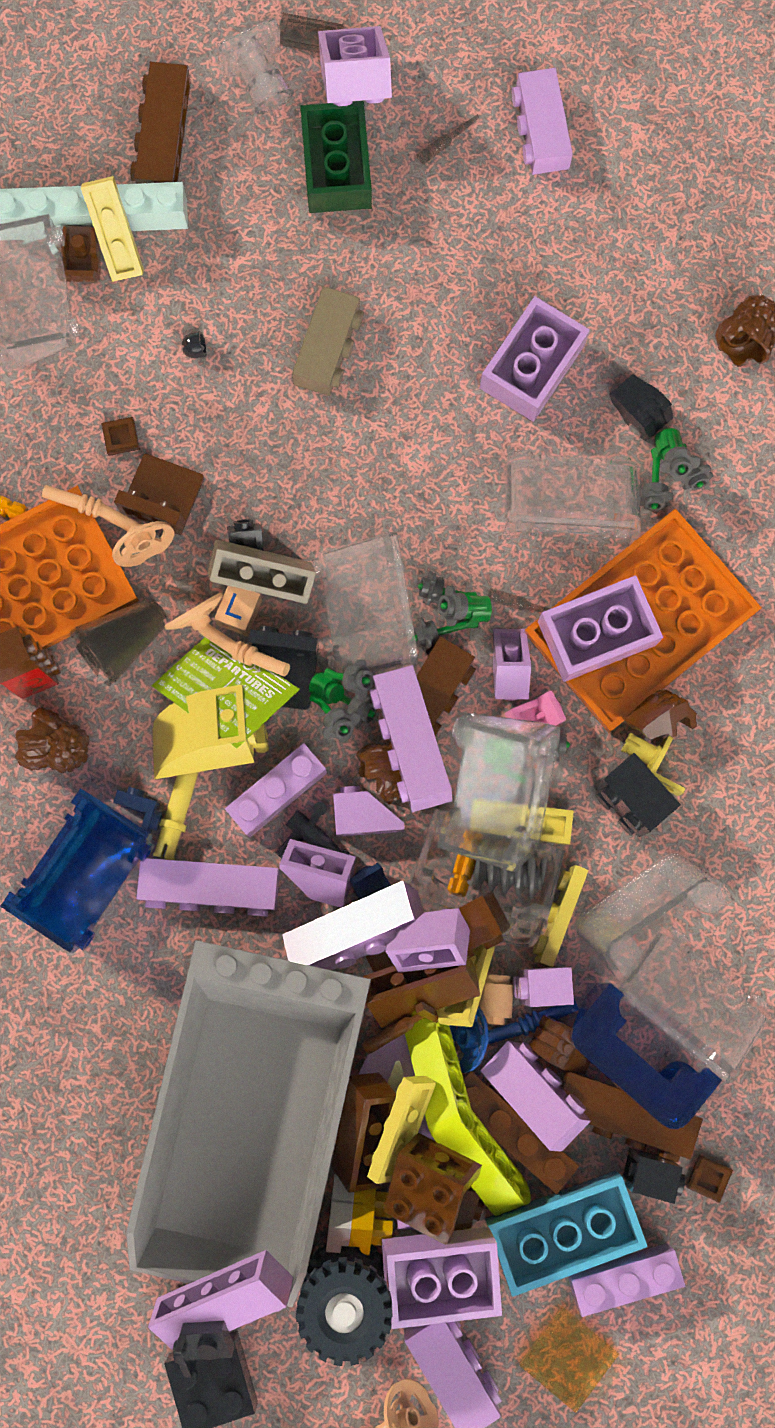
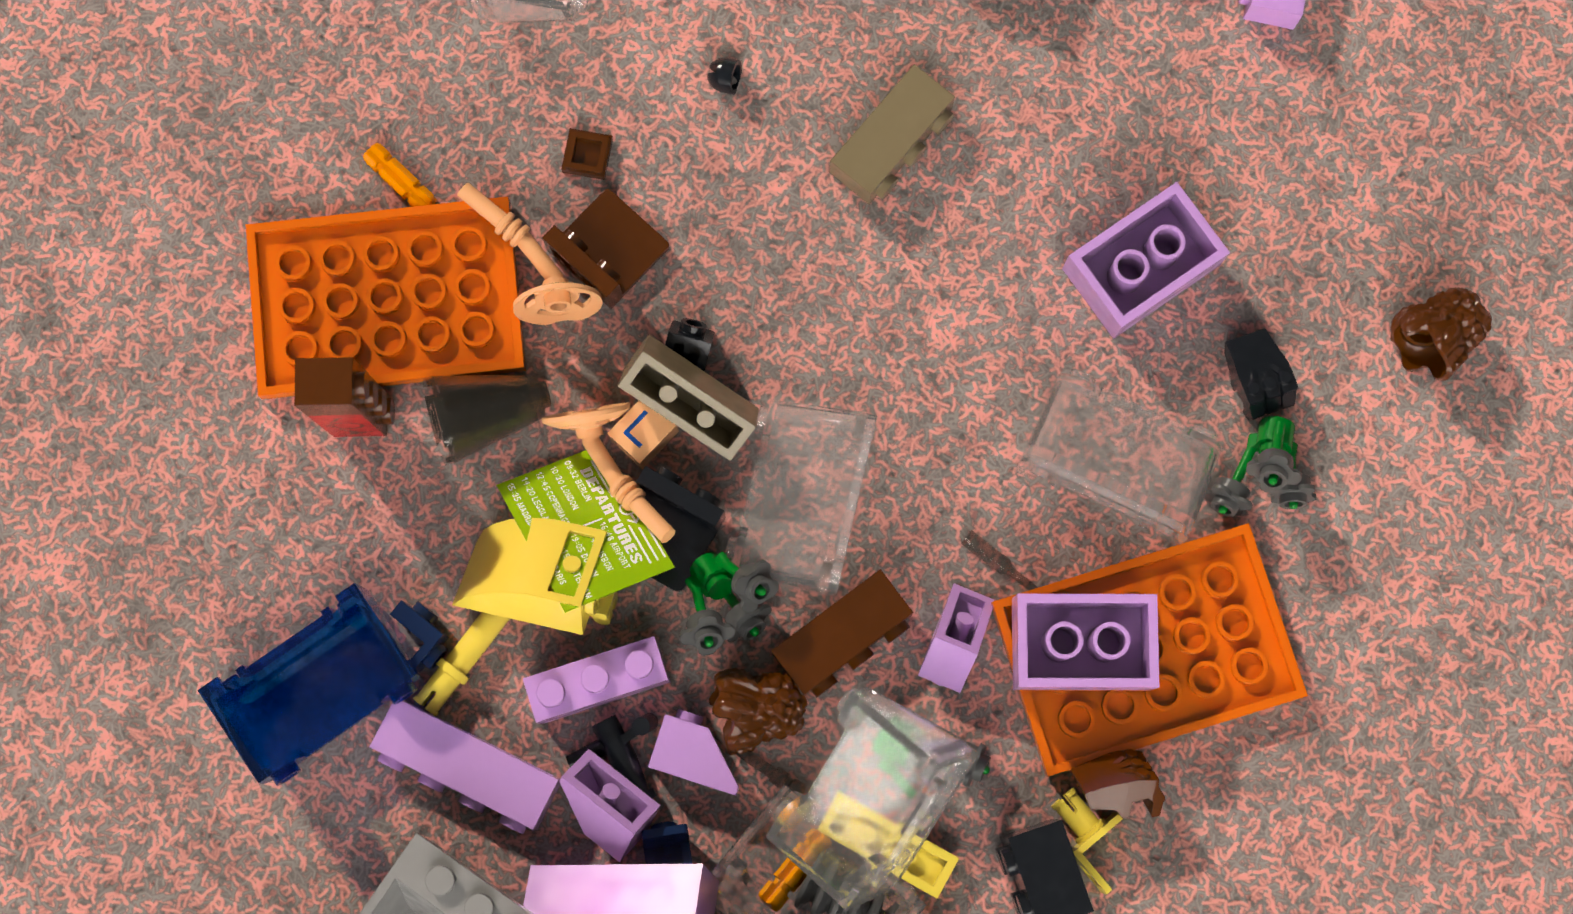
camera: 25 degrees right, 0 degrees up
(51, 743) = (345, 508): reddish brown hair -> none
(412, 739) = (787, 688): lavender brick -> none
(453, 606) = (909, 537): dark grey plant -> none
(542, 709) = (968, 717): bright pink bracket -> none

